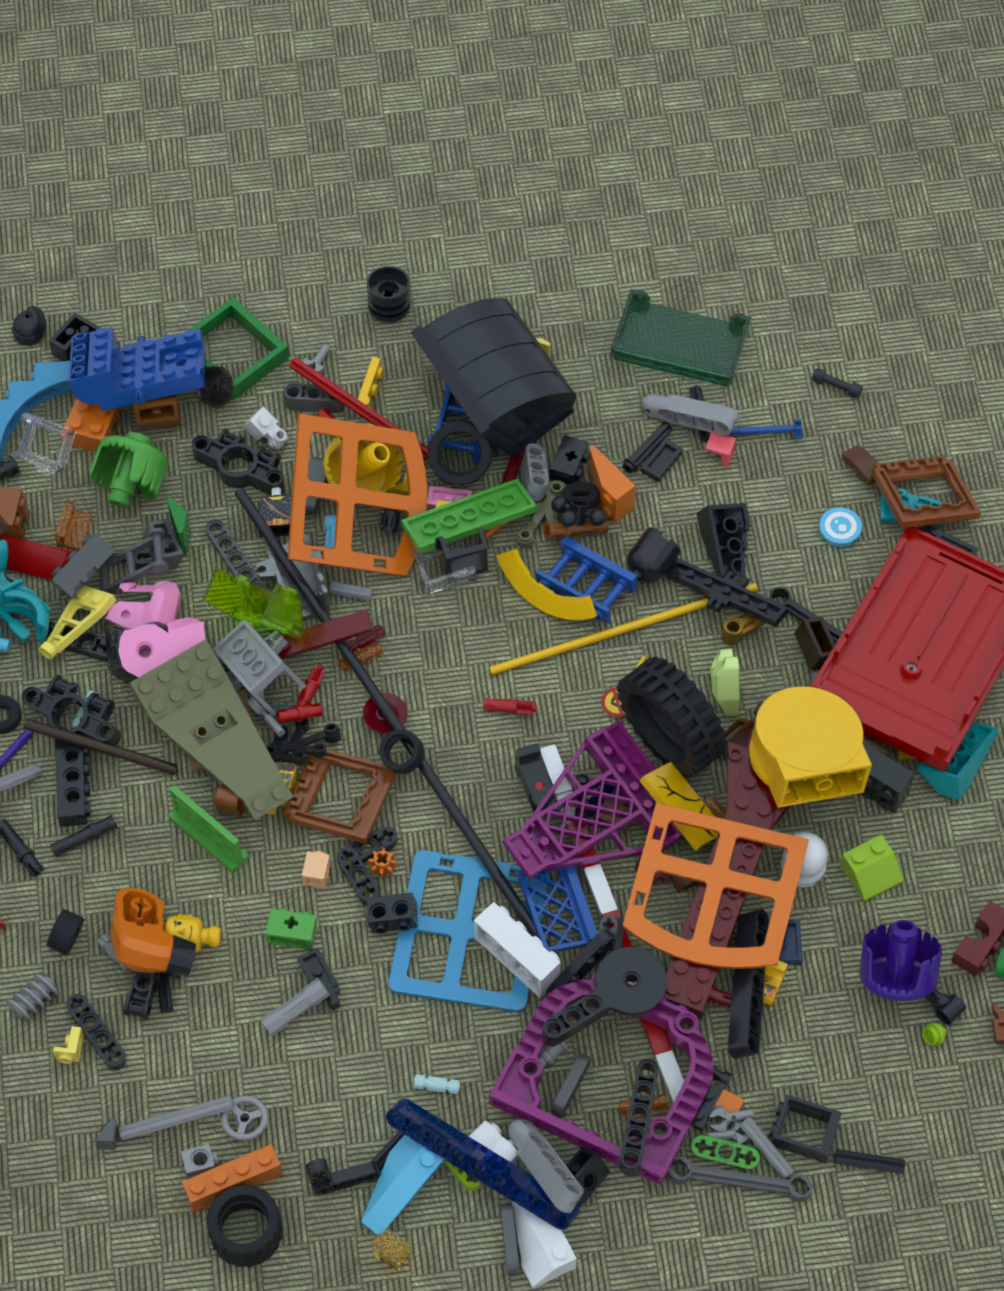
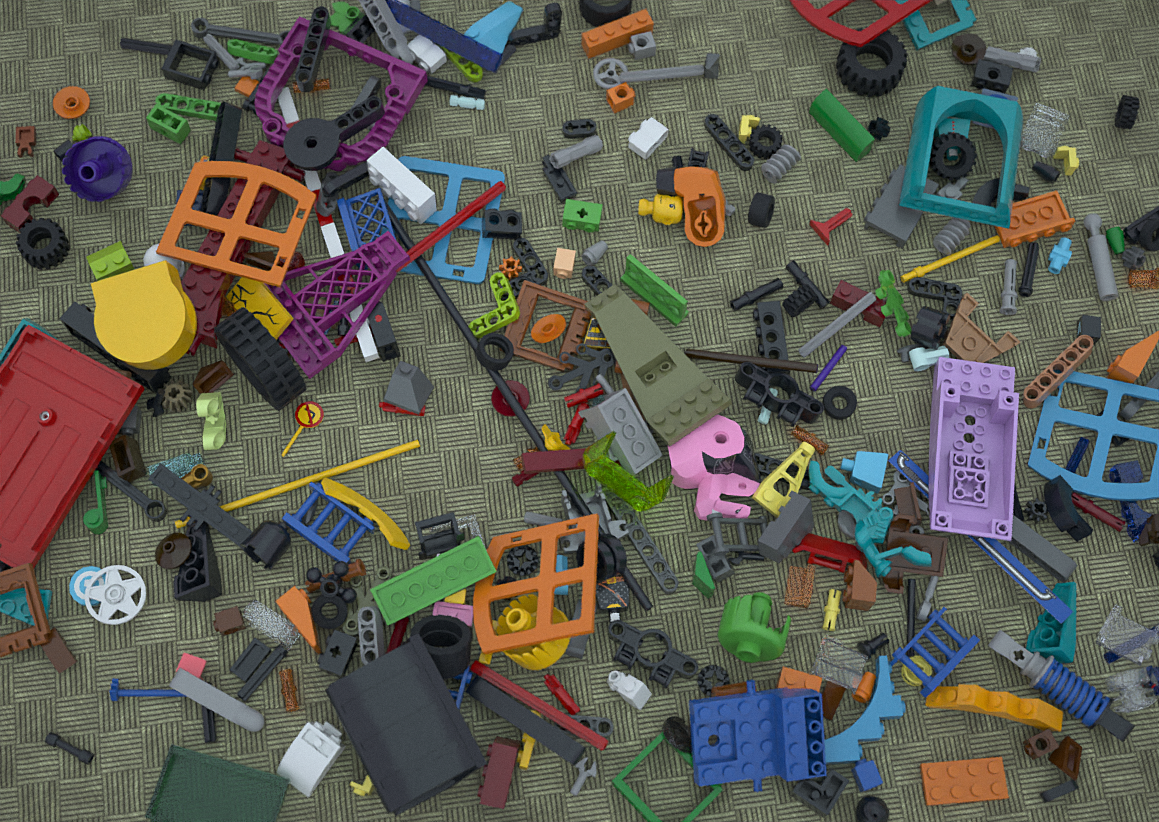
camera: 175 degrees right, 10 degrees up
(16, 433) = (865, 688): none -> orange cone
(28, 355) = (866, 775): none -> blue brick
(32, 819) = (799, 300): none -> black tyre
(39, 1020) = (768, 132): none -> black tyre
(40, 673) = (805, 436): none -> clear orange pin
(42, 505) = (831, 610): none -> light yellow pin
(51, 438) = (831, 698): none -> reddish brown slope
(181, 448) = (707, 672): none -> black gear
(201, 1032) = (647, 138): none -> white brick
(234, 1078) = (617, 103): none -> orange brick
(272, 855) = (596, 274): none -> black beam
(277, 529) = (610, 557): none -> black wheel
(278, 884) = (594, 253): none -> light grey cone
(290, 1048) = (579, 128): none -> black beam
(334, 659) = (552, 440): none -> yellow plate
(347, 788) = (548, 328): none -> orange dish
(372, 388) = (526, 720): none -> black beam
(383, 549) = (527, 567): none -> black gear
(391, 808) = (503, 308): none -> lime beam
(398, 361) = (498, 772): none -> dark red wedge
(451, 912) = (454, 222): none -> red axle
(461, 1105) = (462, 89): none -> black axle
(502, 719) = (408, 388): none -> dark grey slope
(589, 371) = (311, 756): none -> white piece
(609, 1208) = (342, 16): none -> bright green plate
(618, 431) = (291, 703): none -> clear orange pin
(649, 479) = (271, 624): none -> clear window
(686, 490) = (229, 621): none -> reddish brown brick
(749, 563) = (173, 551): none -> dark brown dish
(765, 643) = (179, 465): none -> clear light blue hinge
(798, 1079) = (191, 103): none -> bright green beam
(810, 512) = (115, 594): none -> white wheel
(822, 1039) = (168, 124): none -> bright green brick
(842, 588) = (96, 519): none -> green door
(954, 1064) = (69, 96): none -> orange dish
(961, 870) = (39, 230): none -> black tyre

